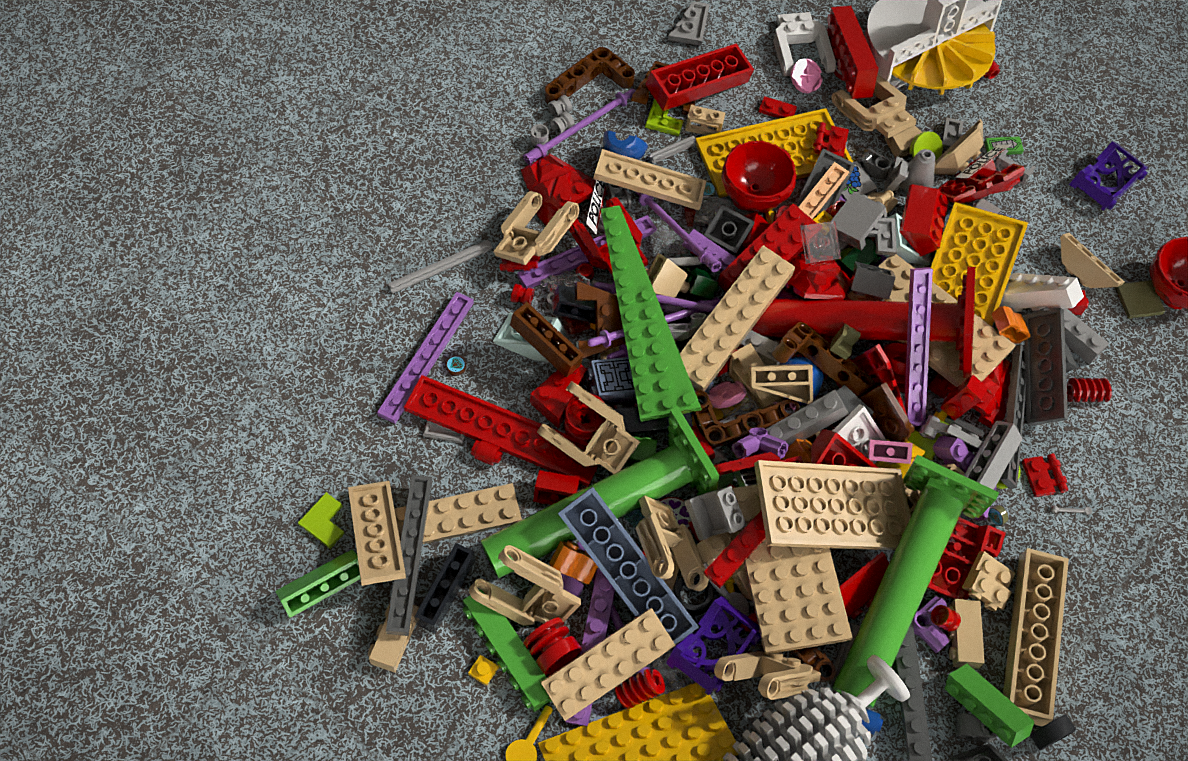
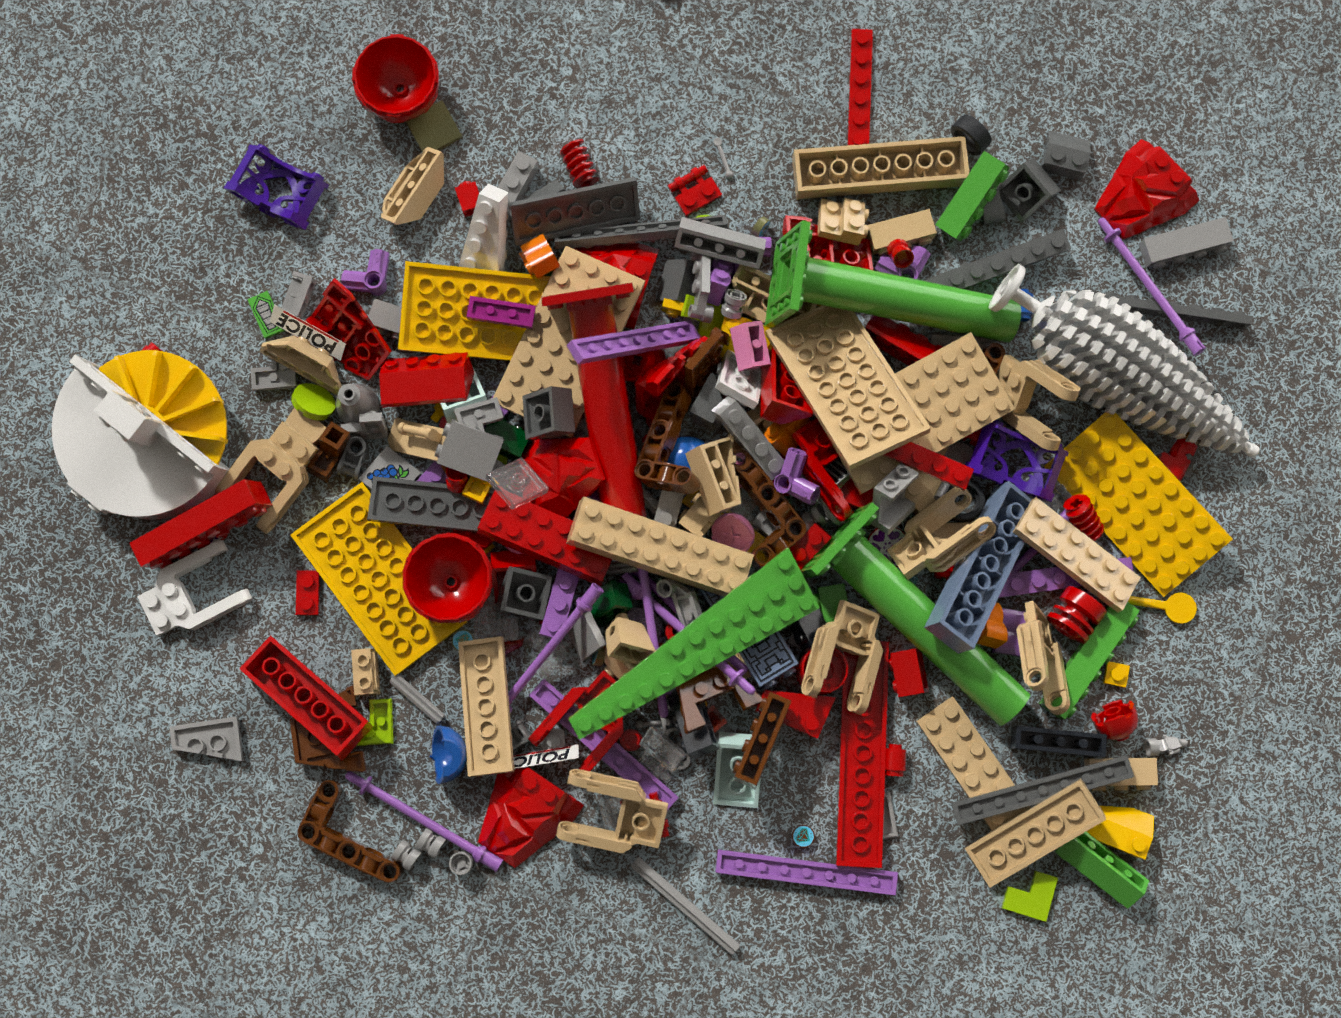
camera: 110 degrees left, 20 degrees up
(347, 613) = (1125, 830): none -> yellow wedge
(399, 692) = (1169, 744): none -> light grey piece
(440, 646) = (1119, 722): none -> red cylinder
(522, 294) = (690, 795): red wheel -> none
(806, 75) = (247, 571): bright pink tile -> none
(823, 190) = (436, 502): light nougat plate -> none
(836, 139) = (343, 508): red plate -> none
(844, 340) = (643, 424): olive panel -> none
(888, 149) = (332, 447): none -> reddish brown brick
(934, 454) = (733, 304): none -> light grey wheel
(964, 397) = (655, 285): red brick -> none
(972, 260) = (501, 312): none -> magenta plate
(1017, 211) = (376, 270): none -> medium lavender piece
(1121, 653) = (860, 86): none -> red plate

